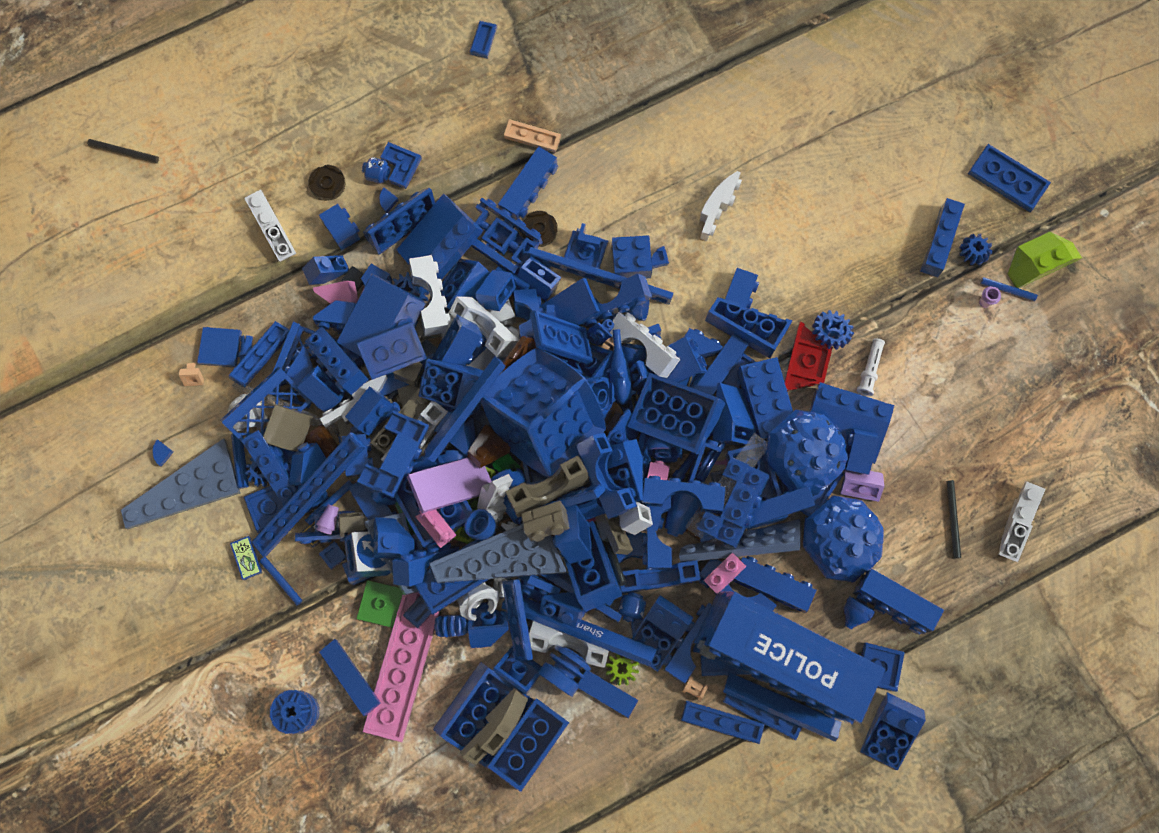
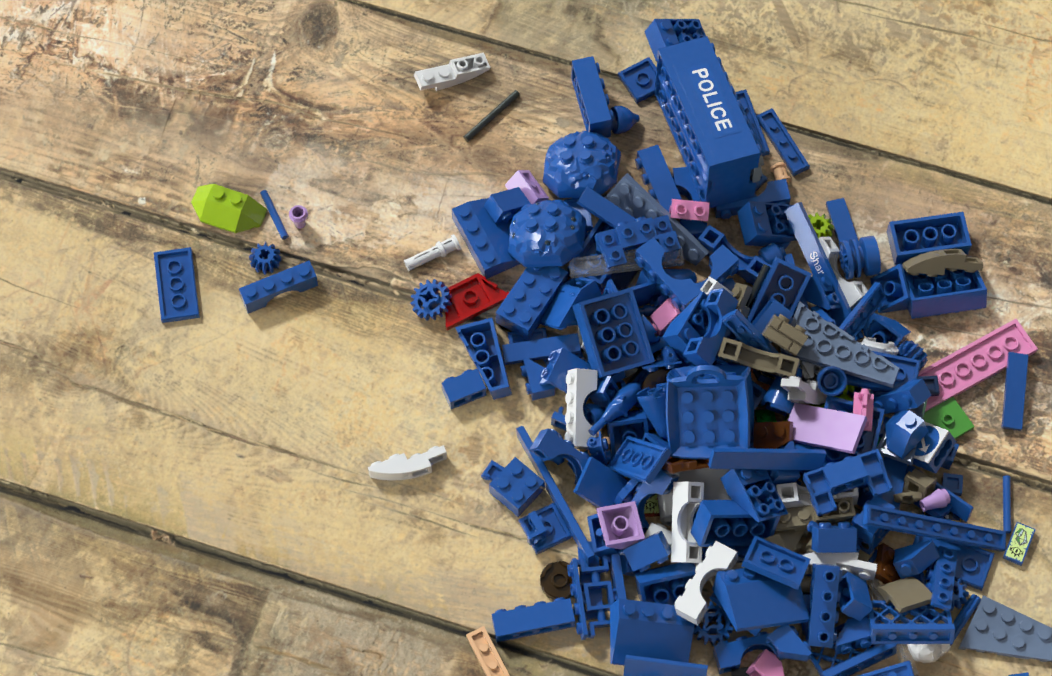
camera: 135 degrees left, 10 degrees down
(351, 506) = (907, 497): none -> dark tan tile
(530, 283) = (620, 525): none -> lavender slope

